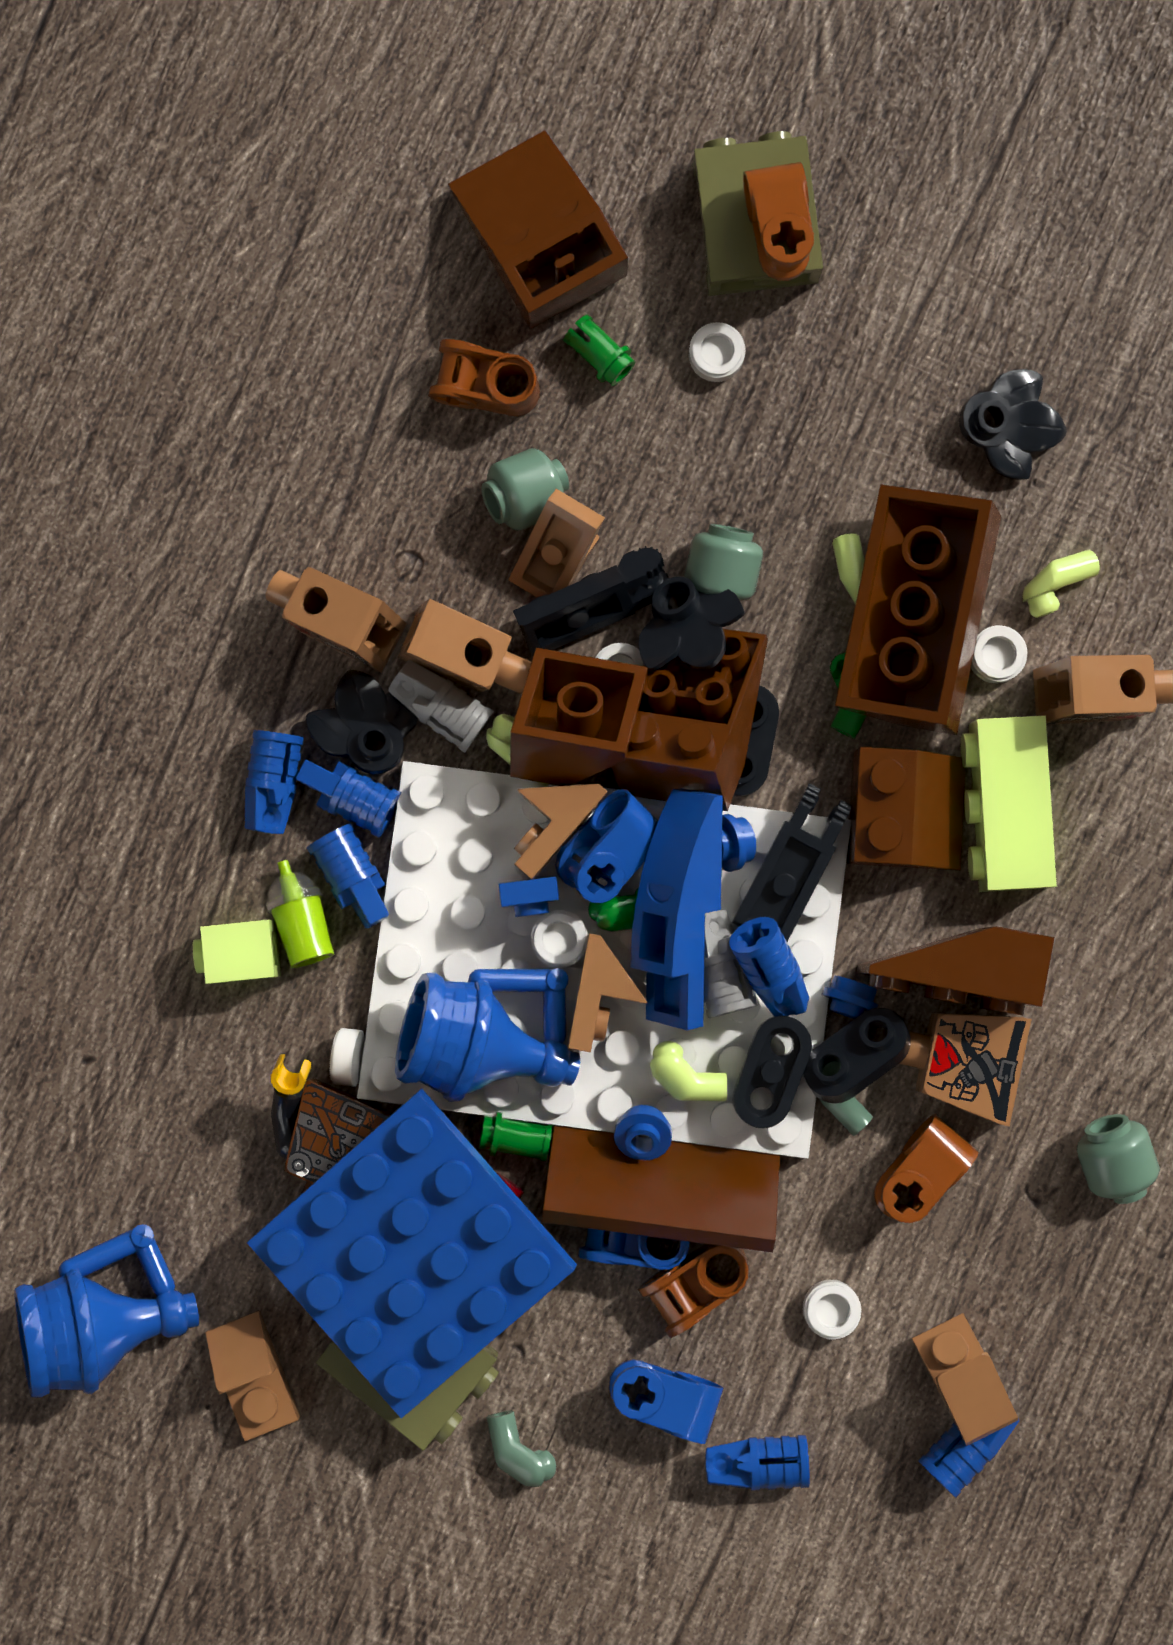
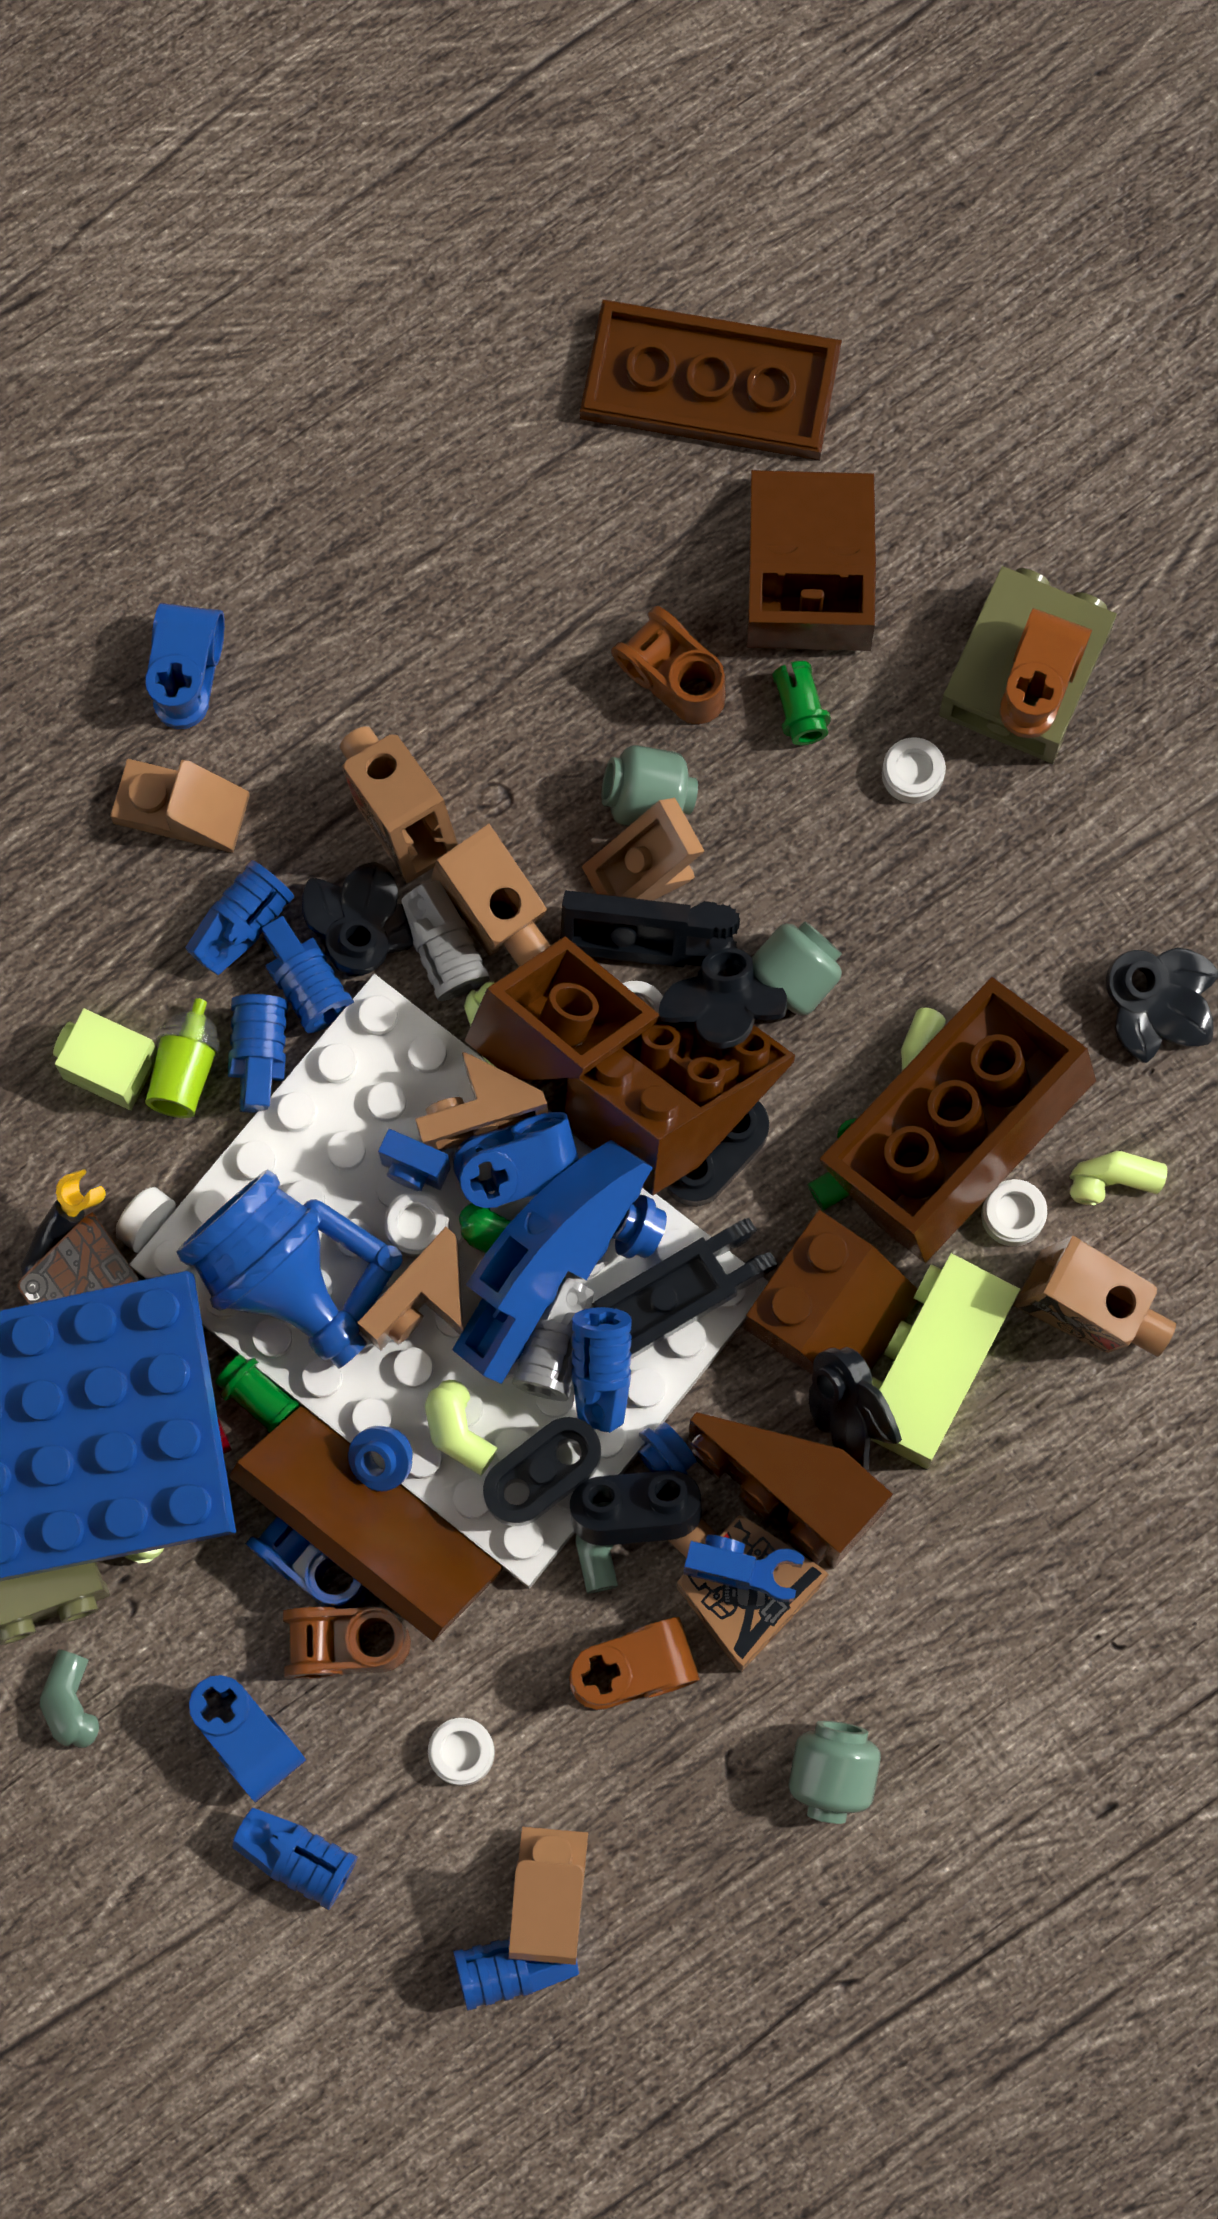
camera: 35 degrees right, 10 degrees down
(97, 594) = (184, 653): none -> blue piece
(168, 716) = (180, 804): none -> medium nougat slope
(370, 127) = (710, 379): none -> reddish brown tile
(954, 1061) = (724, 1563): none -> blue plate
(965, 880) = (849, 1404): none -> black plate

